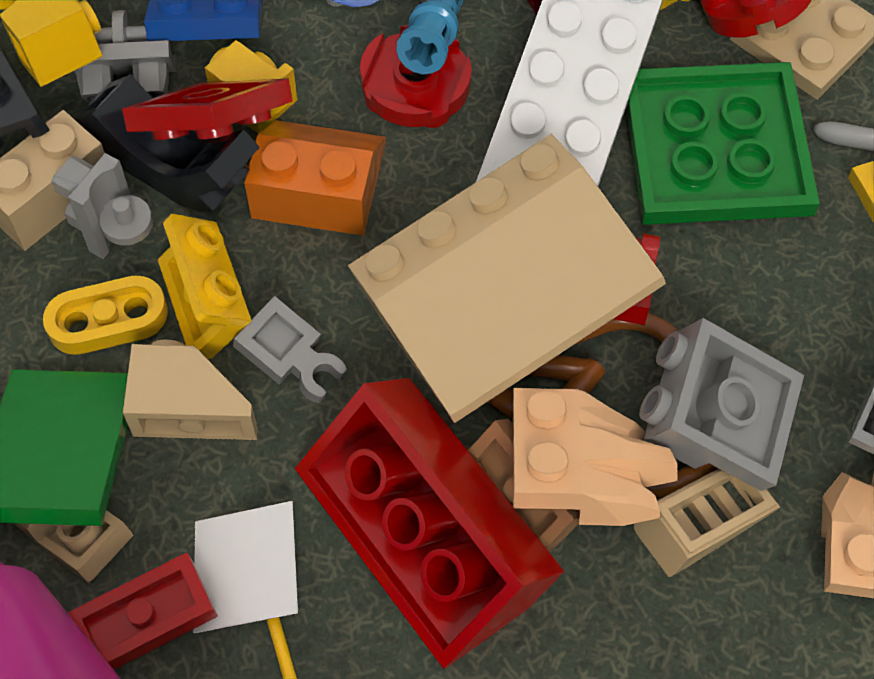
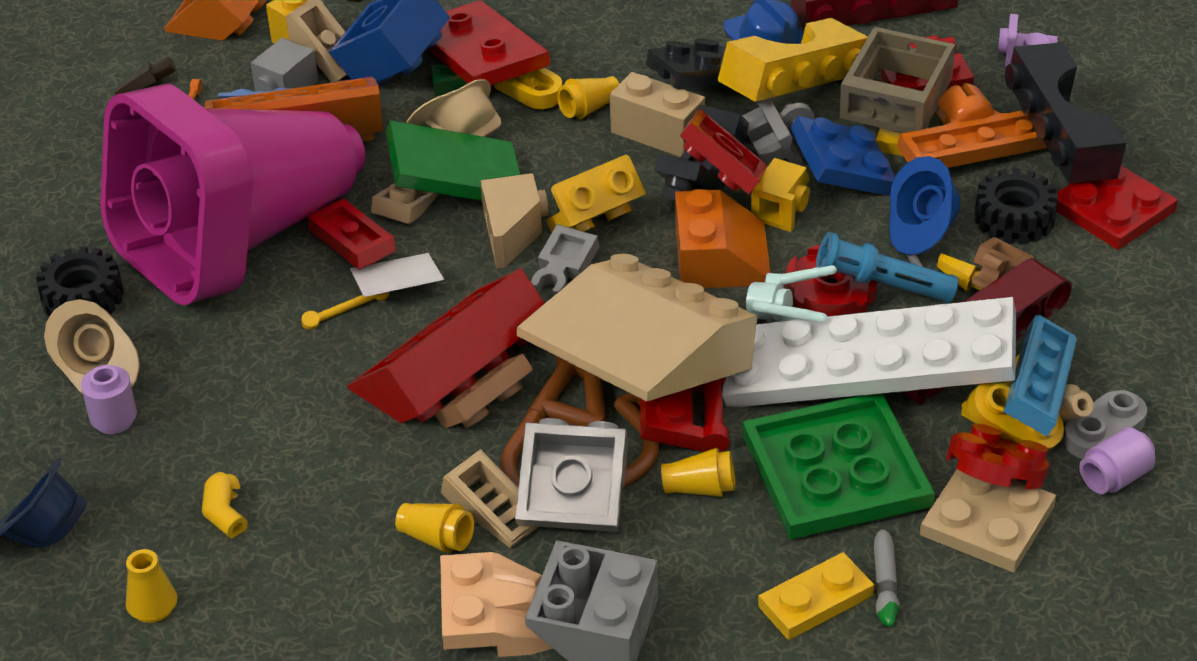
camera: 80 degrees right, 20 degrees down
(102, 204) = (639, 132): light grey hips -> none
(106, 311) = (558, 161): yellow plate -> none
(454, 135) = (775, 303): none -> light aqua plant
(584, 458) = (499, 396): light nougat plate -> none
(711, 274) = (701, 474): none -> yellow cone
(748, 586) = (438, 525): none -> yellow cone

